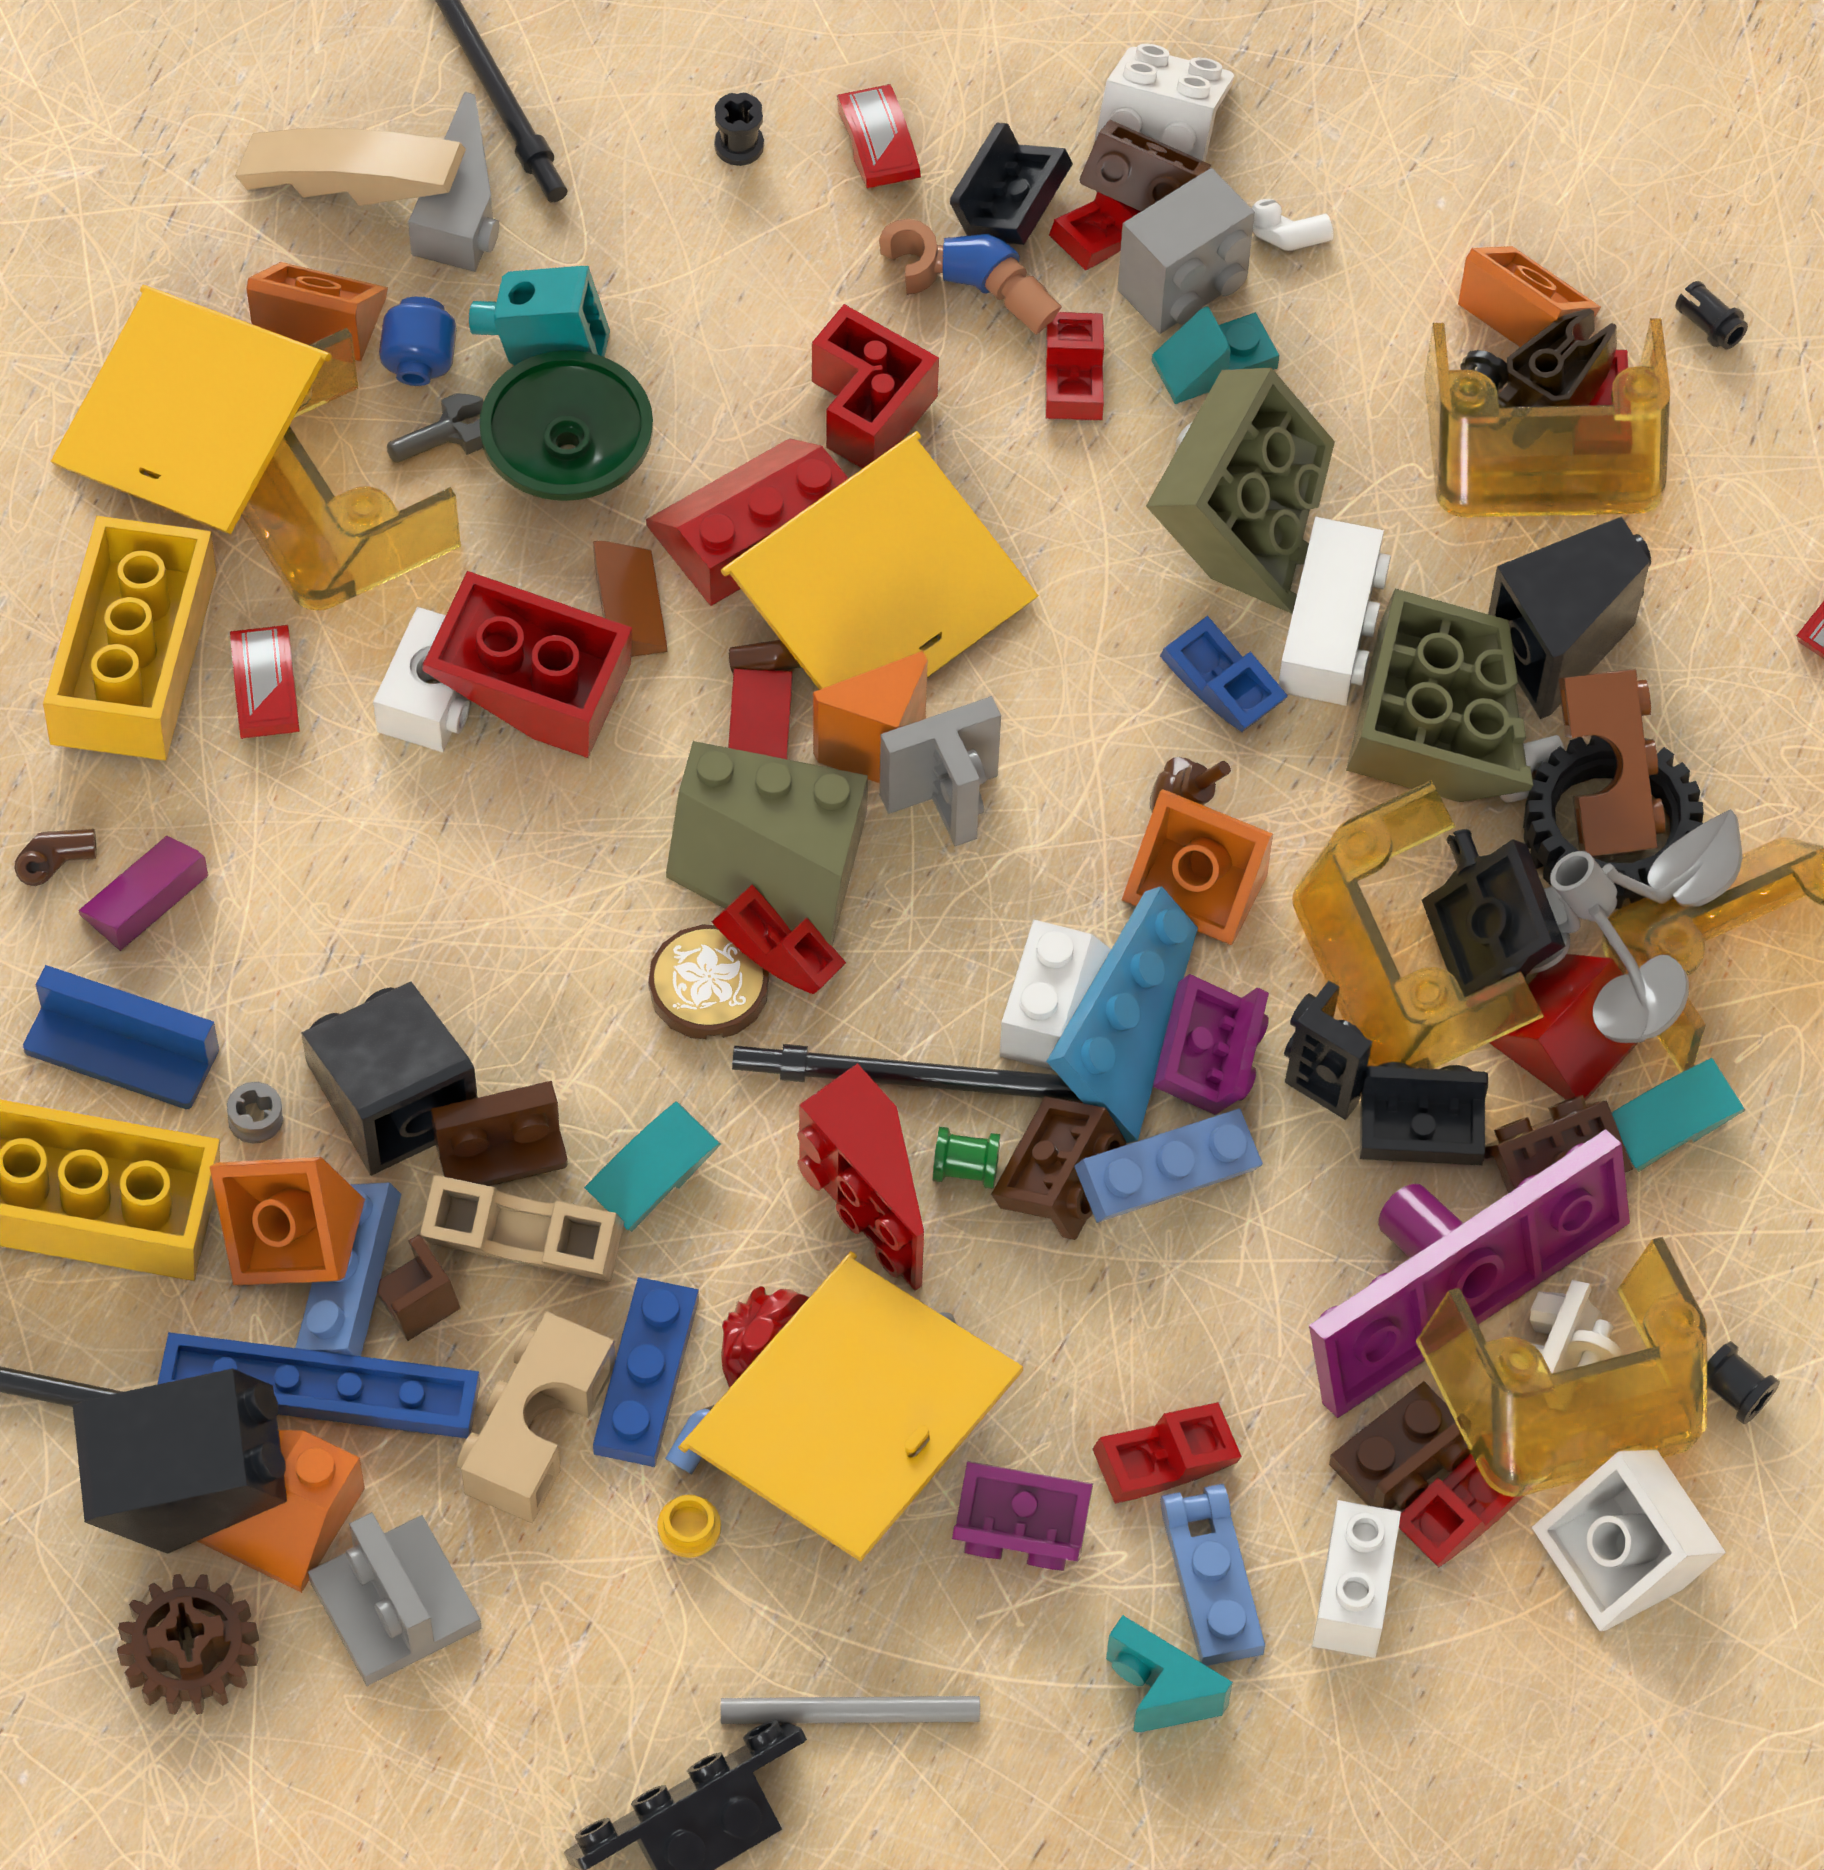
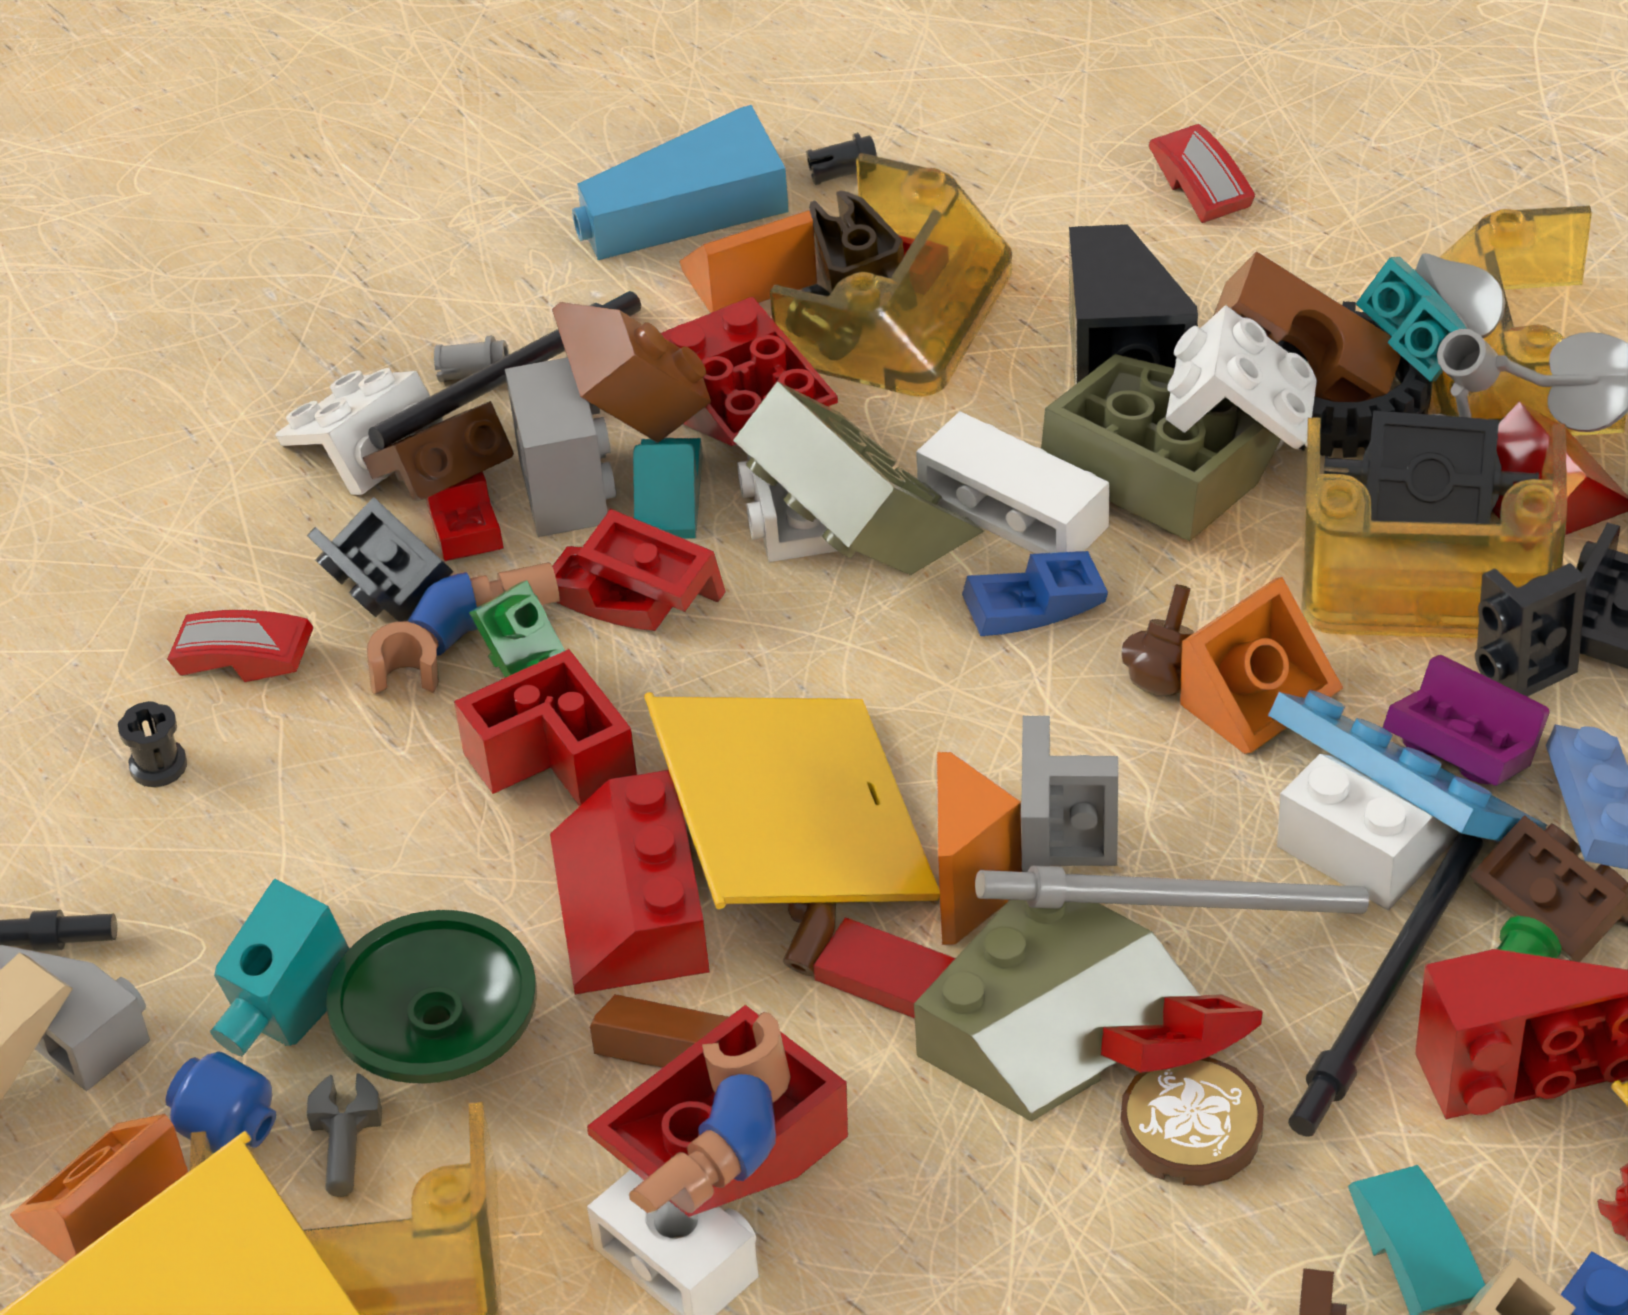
camera: 60 degrees left, 15 degrees down
(498, 661) = (739, 1126): none -> nougat piece
(829, 782) = (1052, 887): none -> light grey bar
(958, 327) = (516, 629): none -> green hips
(1092, 378) = (651, 561): none -> red panel
(1269, 255) = (631, 369): none -> dark orange slope
(1295, 156) = (465, 359): none -> light grey pin
(1352, 347) = (742, 363): none -> red slope
(1381, 212) = (480, 382): none -> black bar
(1504, 731) = (1239, 362): none -> white bracket
(1600, 209) = (684, 188): none -> dark azure slope
(1683, 820) = (1410, 314): none -> teal slope

